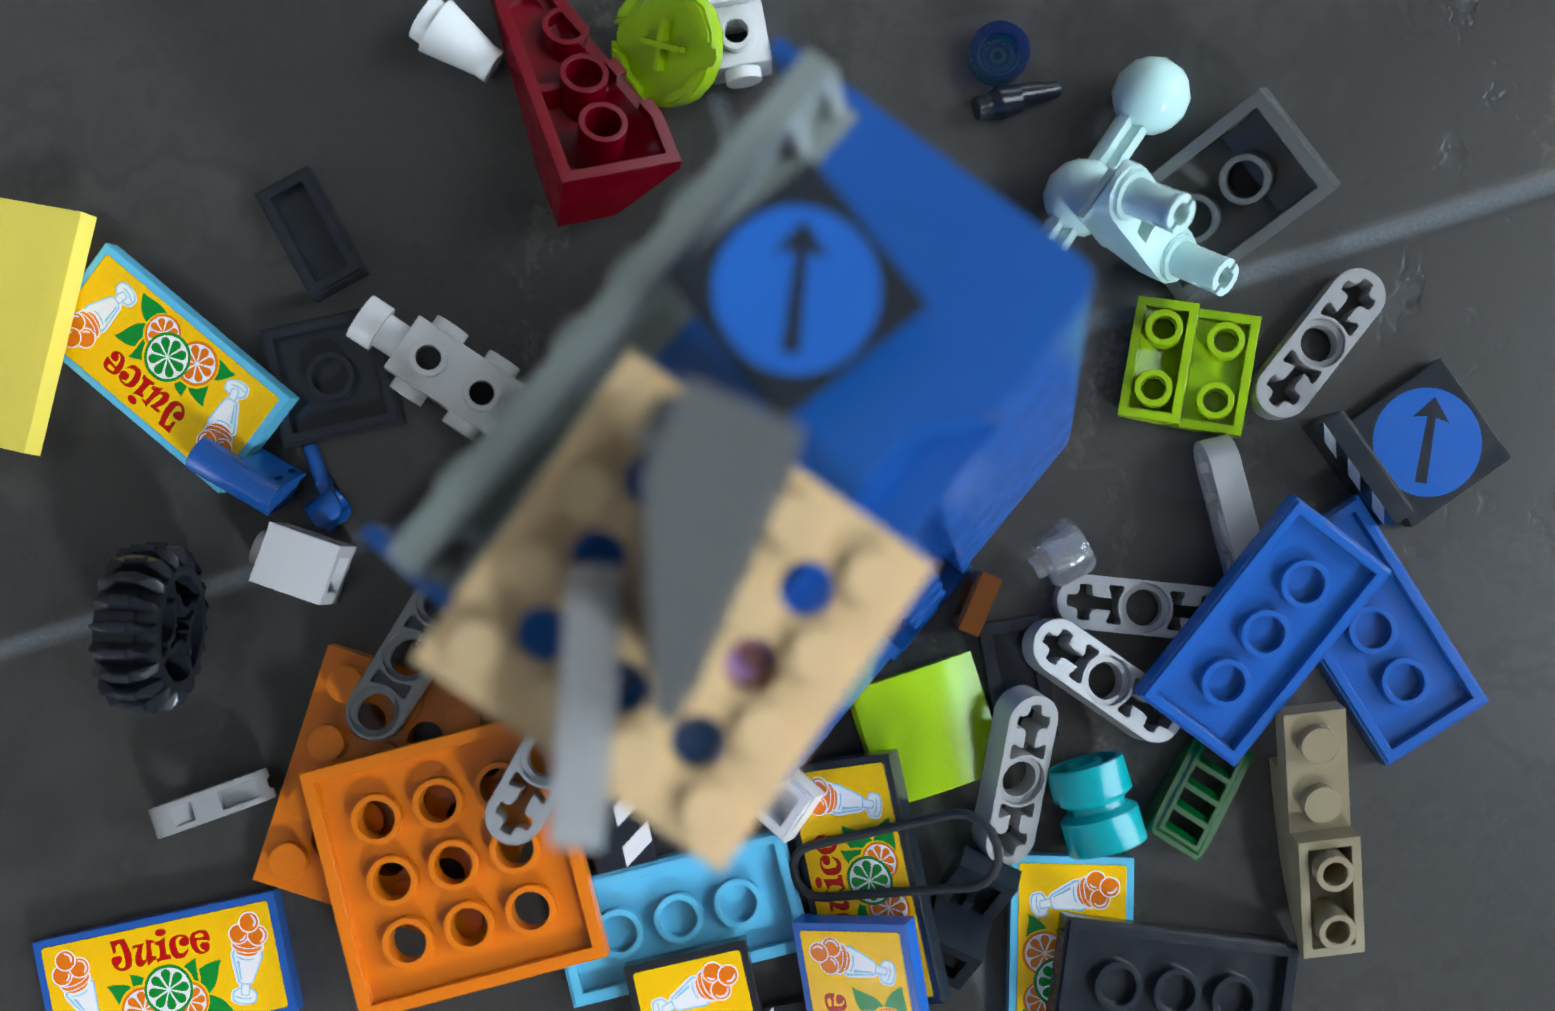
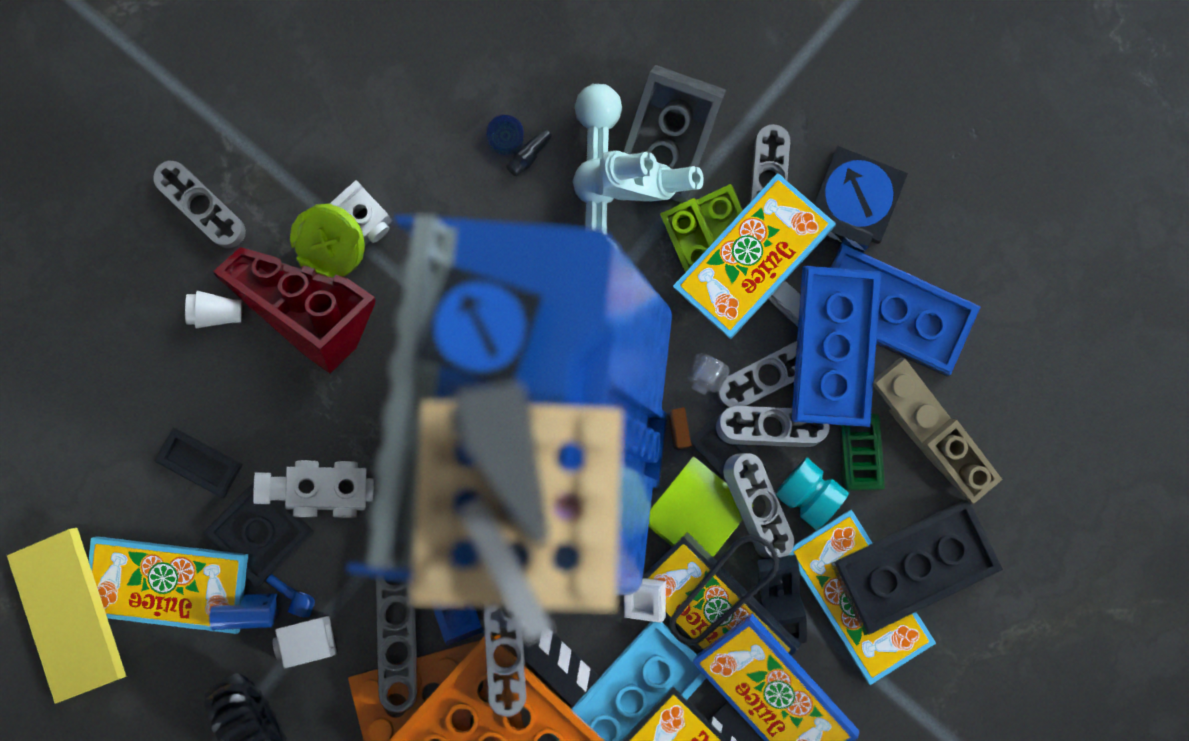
camera: 30 degrees left, 5 degrees down
(1233, 436) = (754, 256): none -> tile

